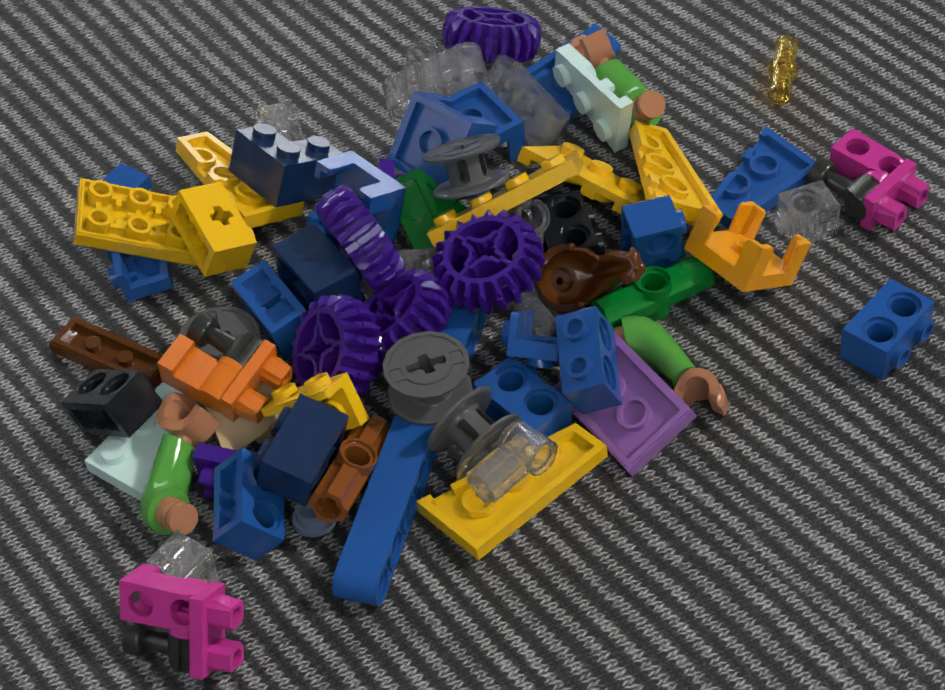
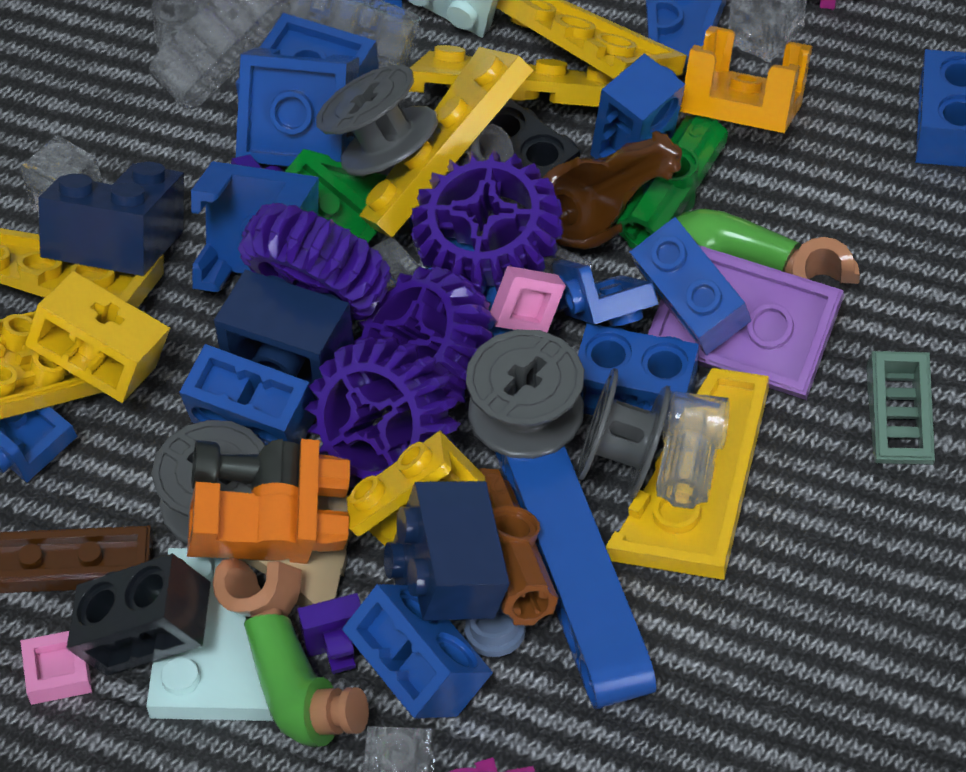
camera: 35 degrees left, 5 degrees up
(52, 417) = (52, 669): none -> bright pink tile
(477, 321) = (527, 299): none -> bright pink tile
(700, 480) = (901, 367): none -> sand green slope

